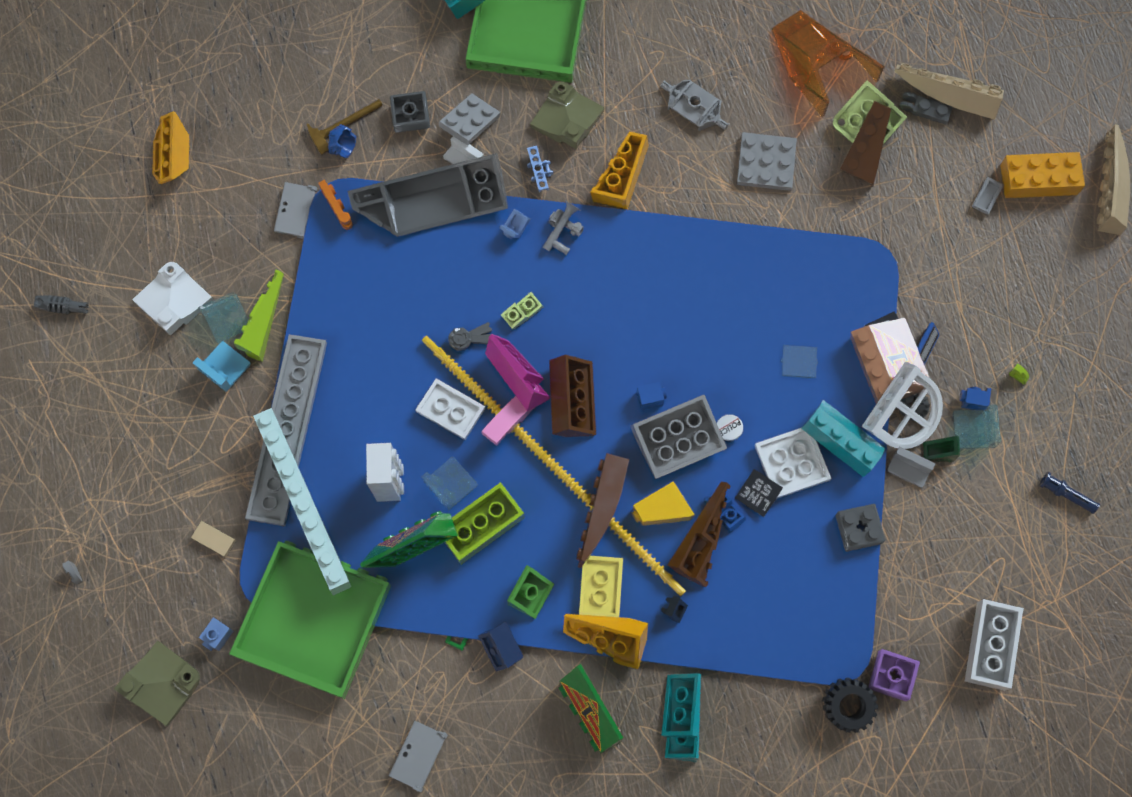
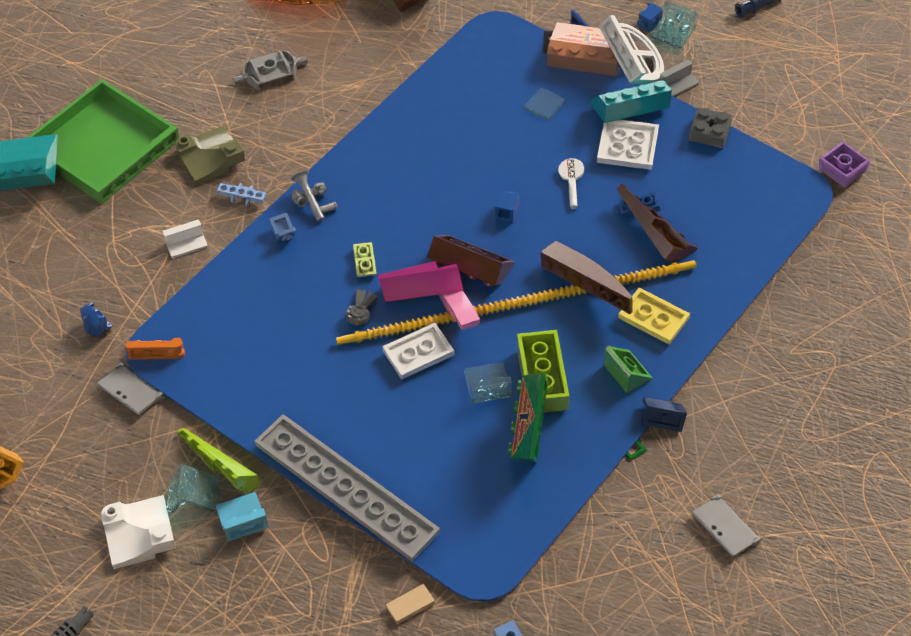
camera: 60 degrees left, 20 degrees down
(302, 502) = (431, 492): light aqua brick -> none
(305, 629) = (547, 548): bright green panel -> none
(319, 136) = (73, 339): pearl gold piece -> none
(384, 472) = (451, 408): white brick -> none
(407, 121) = (110, 257): dark grey brick -> none
(434, 196) = (210, 269): dark grey slope -> none
(469, 119) = (156, 216): light grey plate -> none
(590, 709) = (761, 364): green slope -> none
(615, 636) = (705, 325): light orange wedge -> none
(620, 178) = (297, 139): light orange wedge -> none
(663, 507) = (612, 240): yellow slope -> none
(675, 609) = (704, 272): black tile -> none
(678, 436) = (556, 201): light grey slope -> none
(682, 716) = (802, 311): teal slope -> none
(758, 492) = (640, 175): black sticker -> none
(766, 161) = (357, 49): light grey plate -> none
(861, 717) = (859, 189): black tyre -> none
(942, 449) = (679, 51): dark green slope -> none
(994, 645) = (854, 94): white brick -> none

